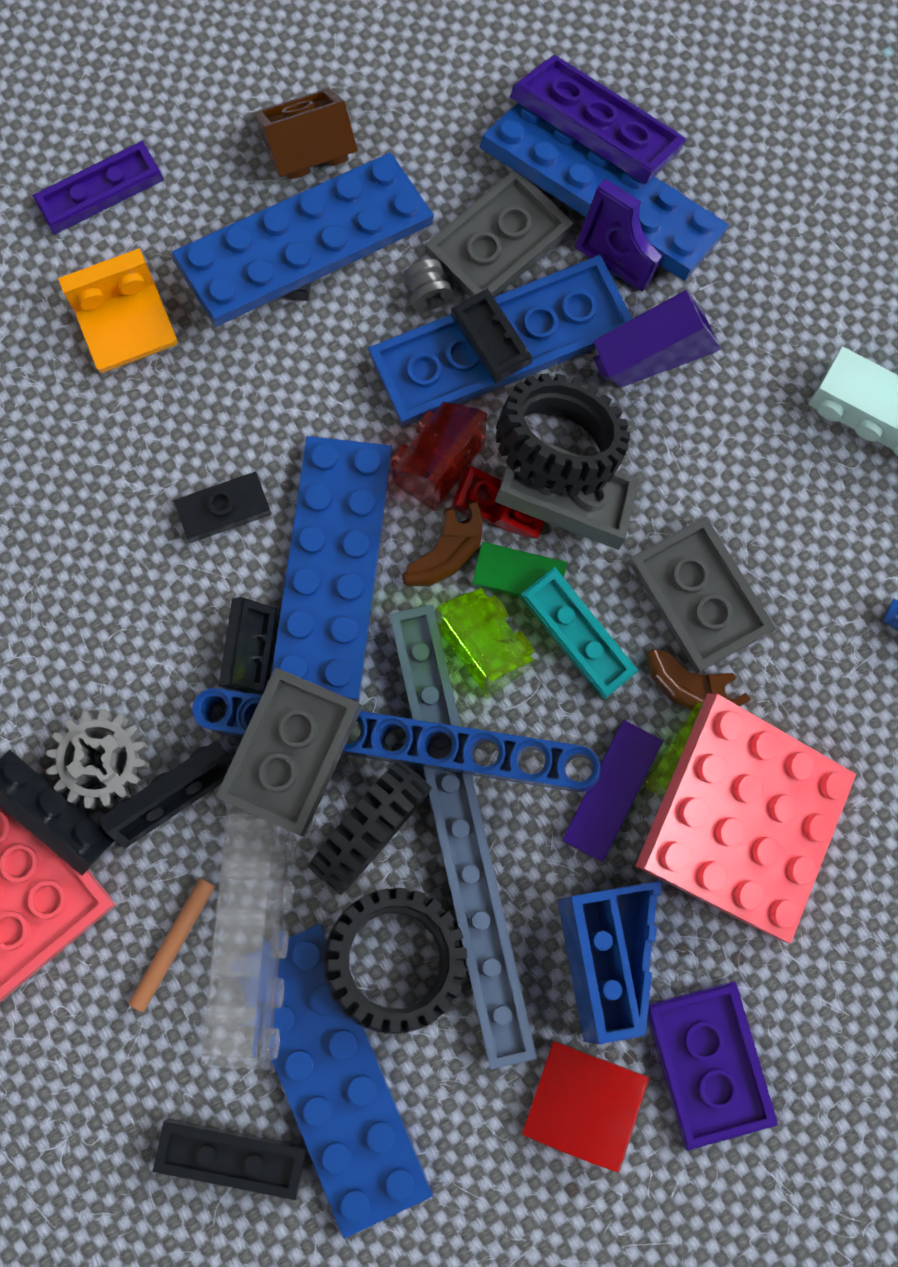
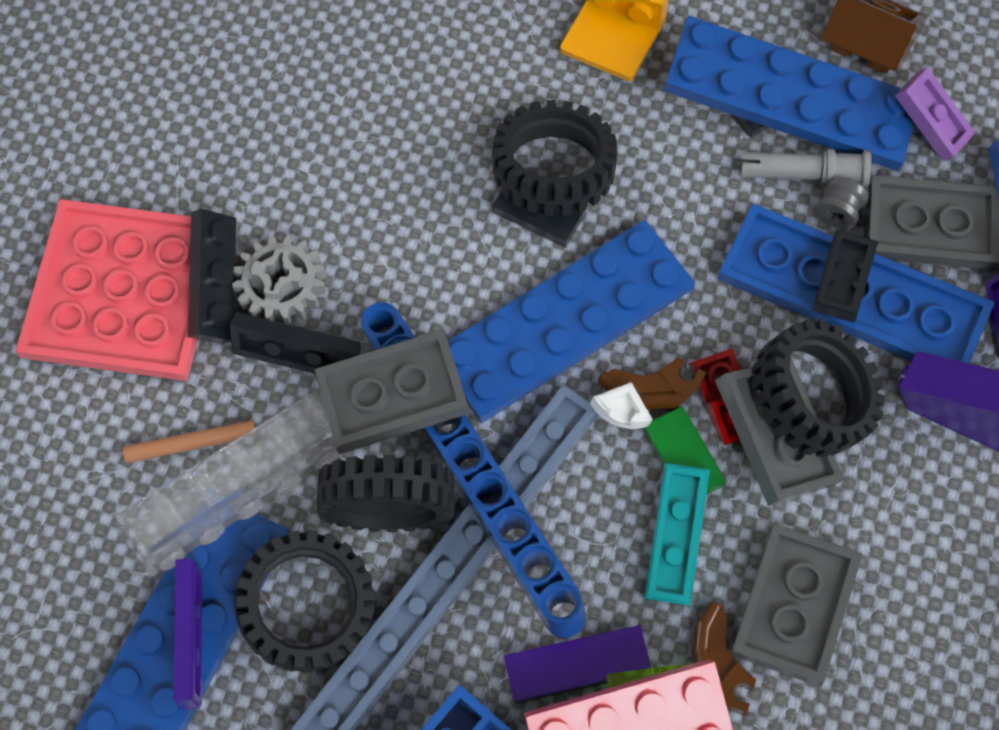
camera: 55 degrees right, 10 degrees down
(169, 424) = (557, 123): none -> black tyre
(230, 1159) = (67, 608): black plate -> none
(247, 646) = (452, 306): black plate -> none
(347, 1078) = (188, 635): none -> dark purple tile
(386, 270) = (808, 166): none -> light grey pin
(418, 156) = (935, 114): none -> medium lavender plate
(440, 452) = (719, 319): clear red slope -> none
(446, 584) = (622, 407): none -> white tile
(484, 640) = (604, 466): clear neon green slope -> none

